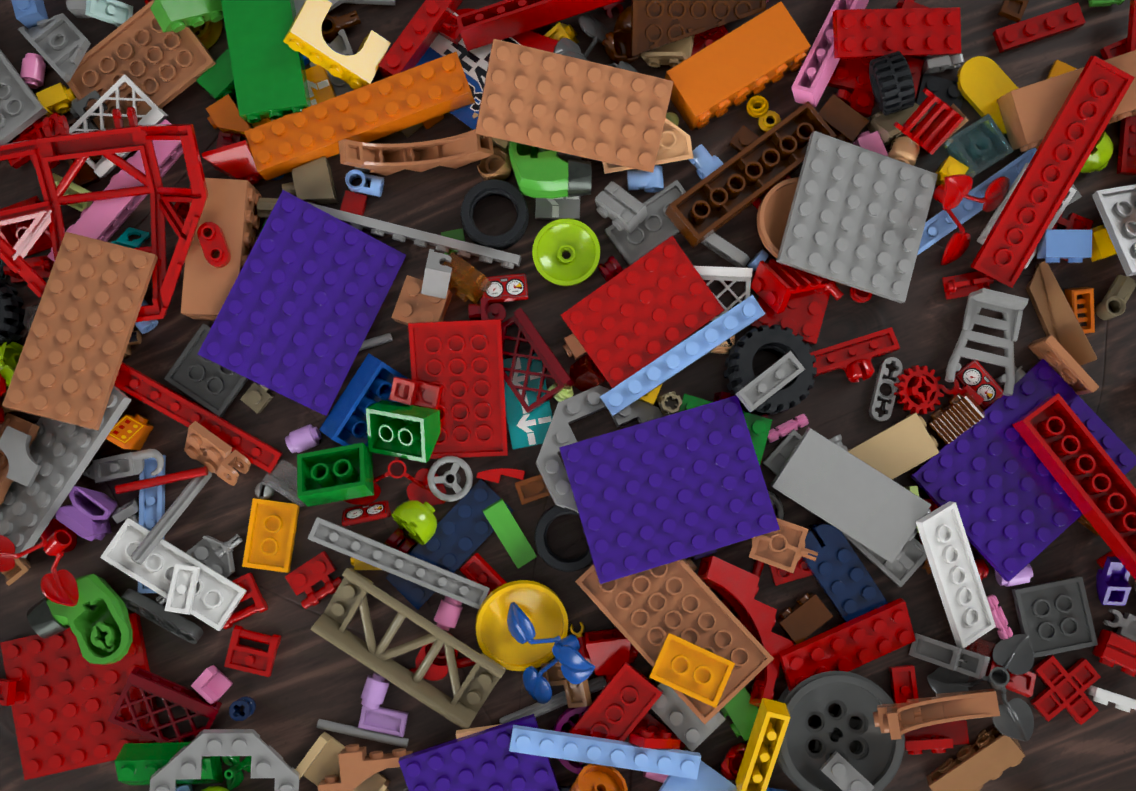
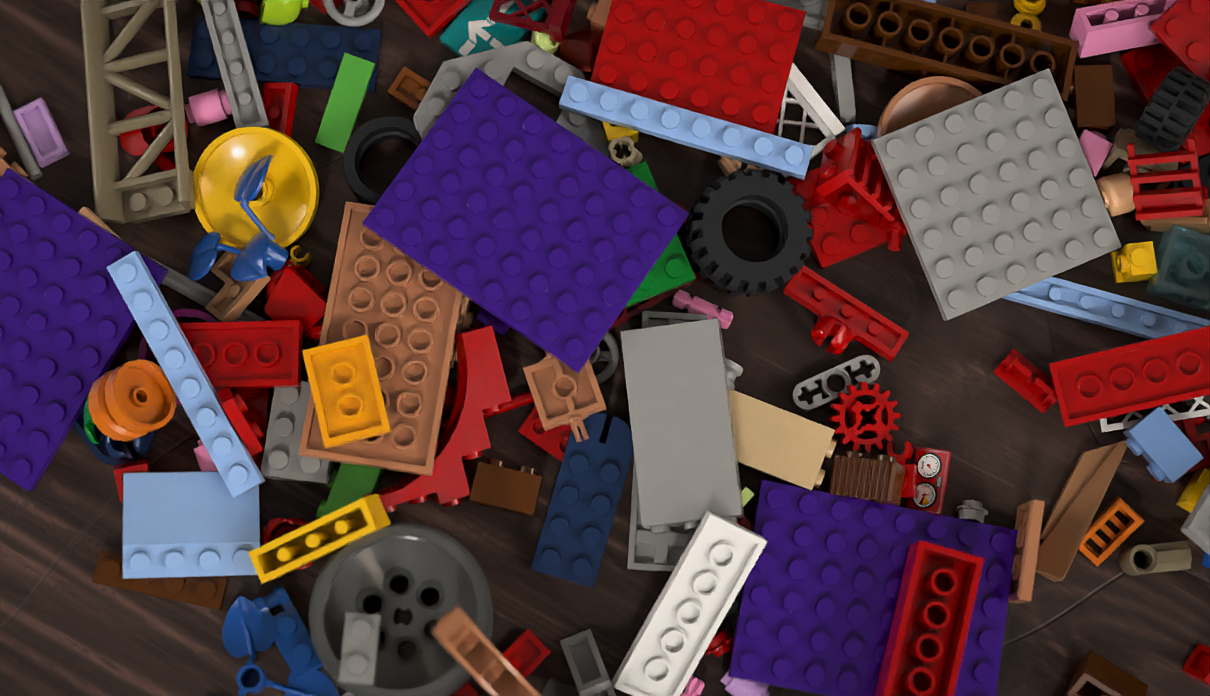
camera: 50 degrees right, 5 degrees down
(374, 691) = (64, 96): lavender brick -> none
(495, 475) = (399, 43): red slope -> none
(770, 381) = (730, 229): light grey plate -> none
(849, 643) = (520, 558): red plate -> none
(858, 100) = (1129, 103): red plate -> none
(859, 296) = (915, 274): red plate -> none
(952, 193) = (1108, 269): red plant -> none
(1012, 310) = (1034, 420): light grey hand -> none

